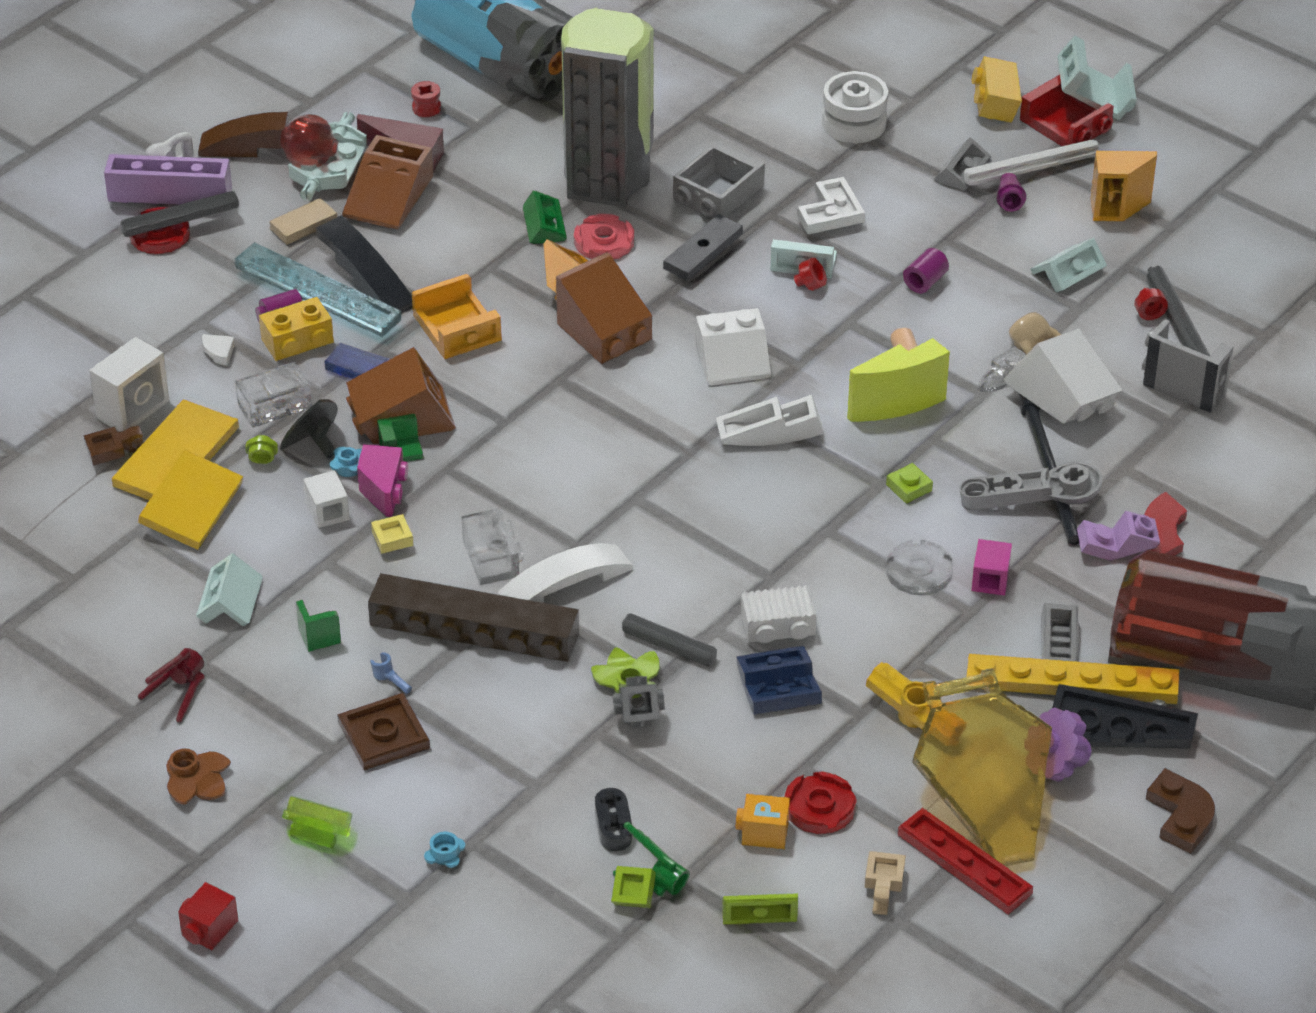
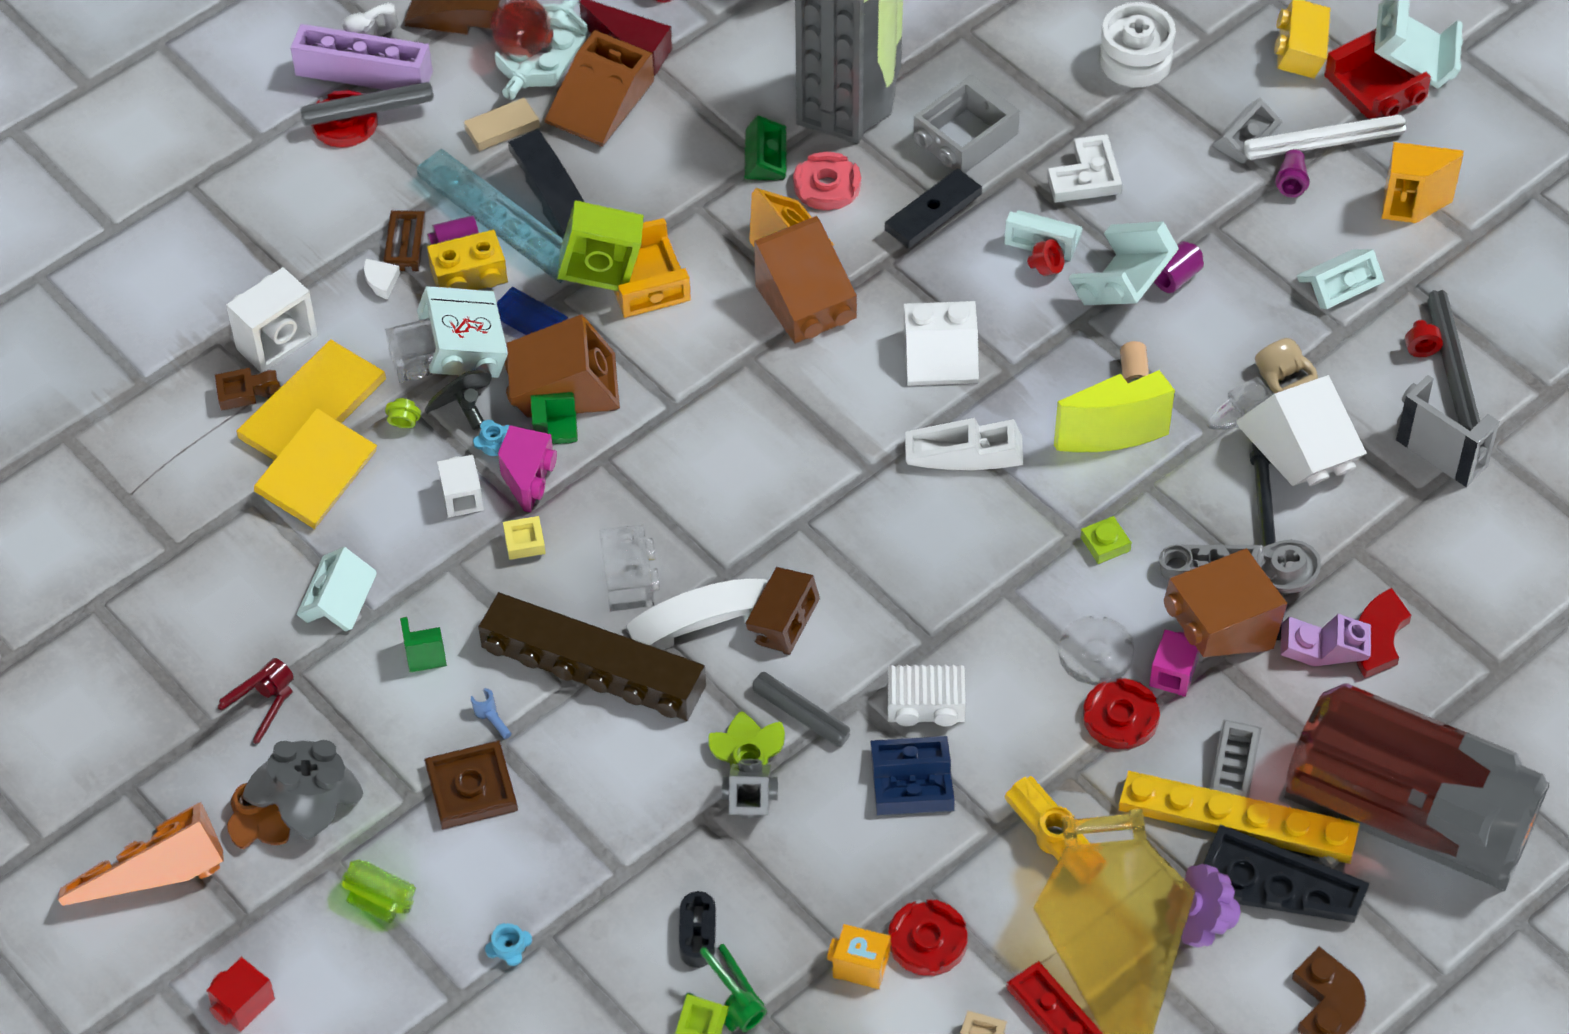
camera: 10 degrees right, 10 degrees up
(123, 811) = (175, 854): none -> wedge
(234, 332) = (404, 261): none -> reddish brown tile
(236, 739) = (305, 784): none -> dark grey brick
(307, 374) = (464, 330): none -> light aqua panel
(417, 296) = (600, 246): none -> lime brick
(638, 563) = (783, 609): none -> reddish brown hinge
(891, 265) = (1140, 257): none -> light aqua panel
(952, 613) = (1121, 713): none -> red tile
(1030, 512) = (1227, 606): none -> dark orange slope

